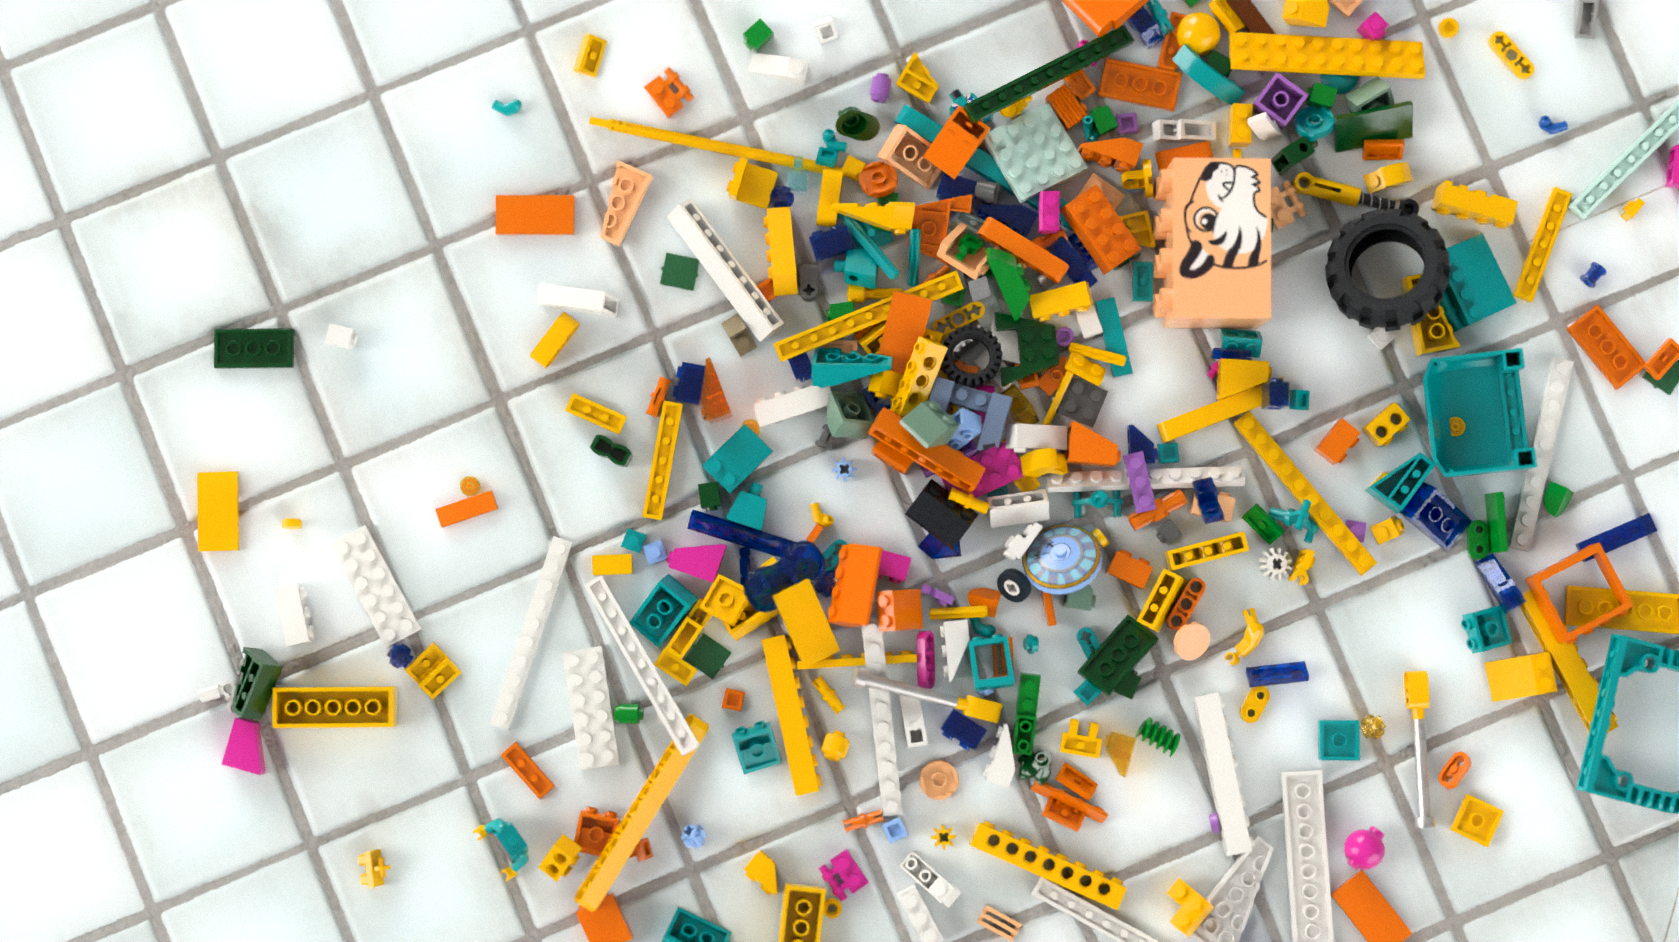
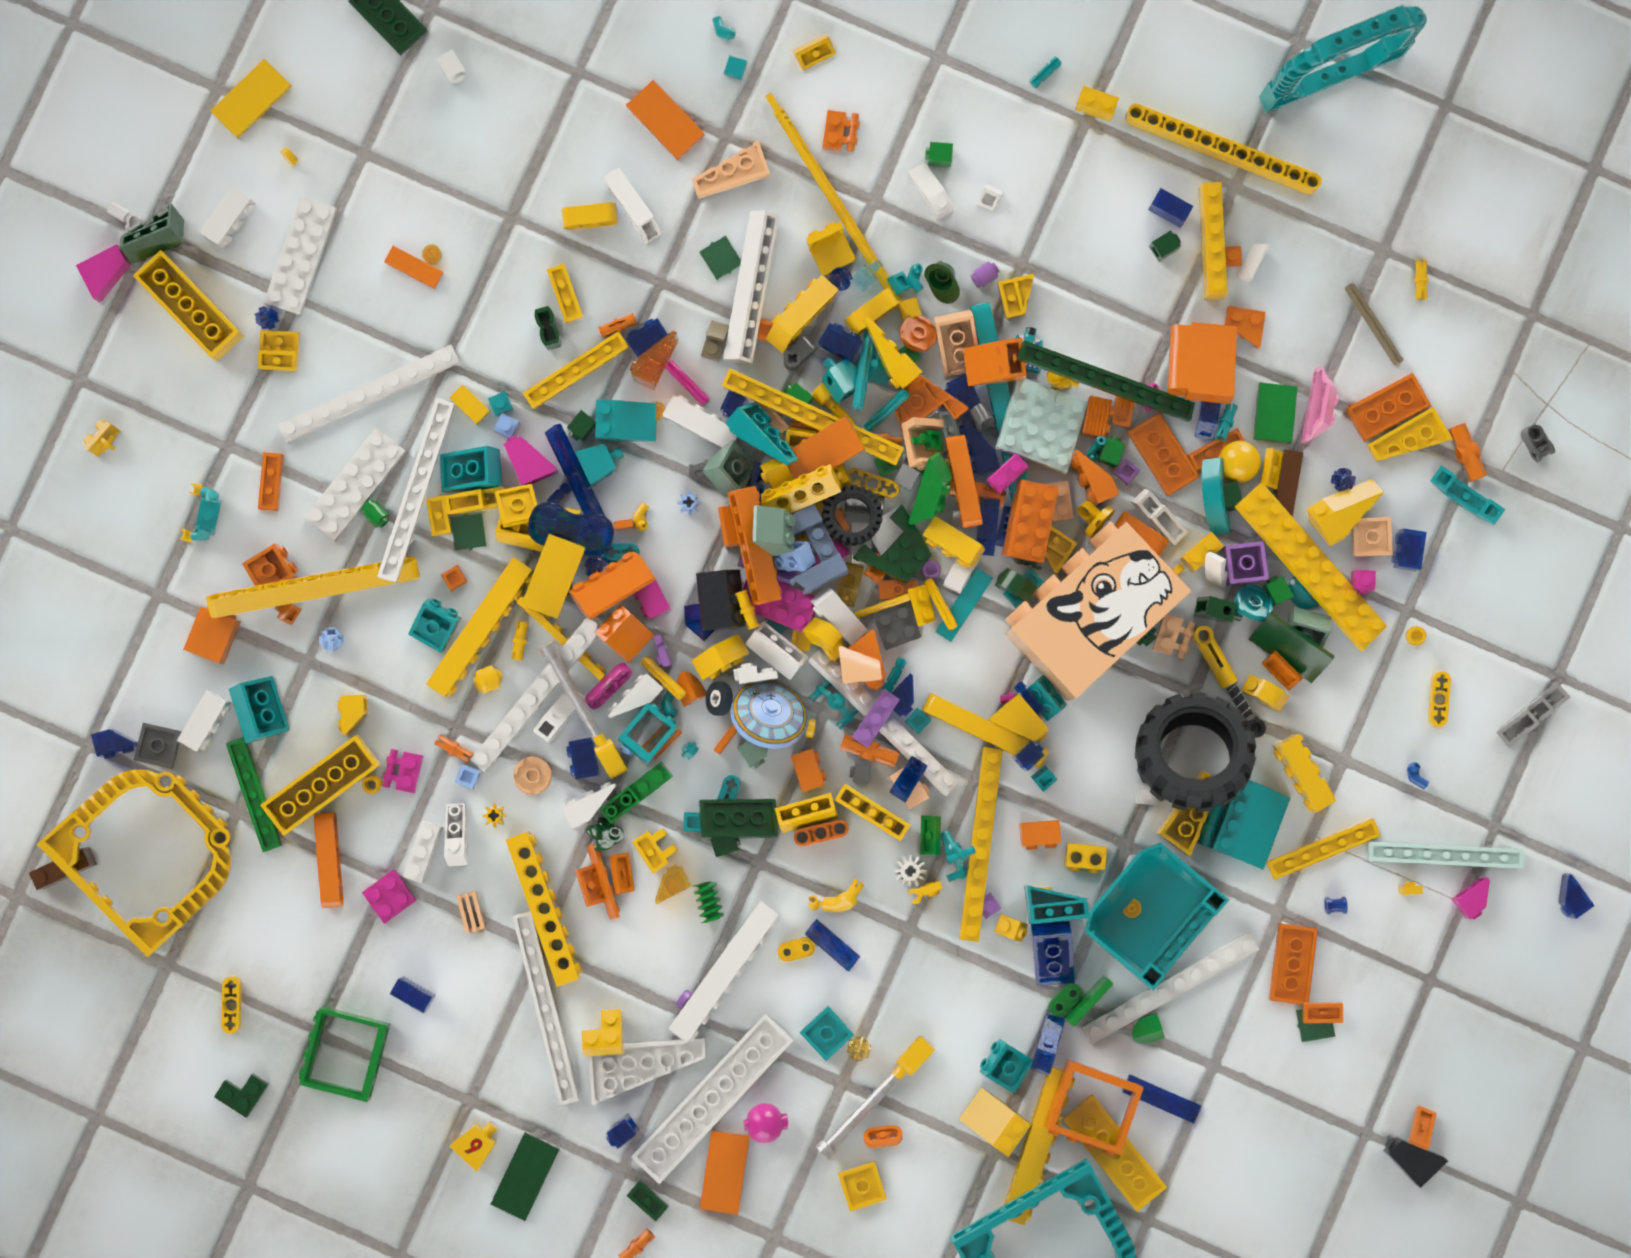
camera: 45 degrees right, 0 degrees up
(545, 125) = (735, 67): none -> teal tile
(560, 858) = (228, 560): yellow brick -> none
(751, 386) = (687, 383): none -> dark pink axle
(984, 555) = (720, 657): none -> yellow brick
(1092, 458) = (858, 667): none -> light nougat slope
(1117, 437) = (894, 674): none -> teal axle
(1136, 284) = (1015, 584): none -> dark green brick
(1191, 641) = (798, 861): light nougat tile -> none

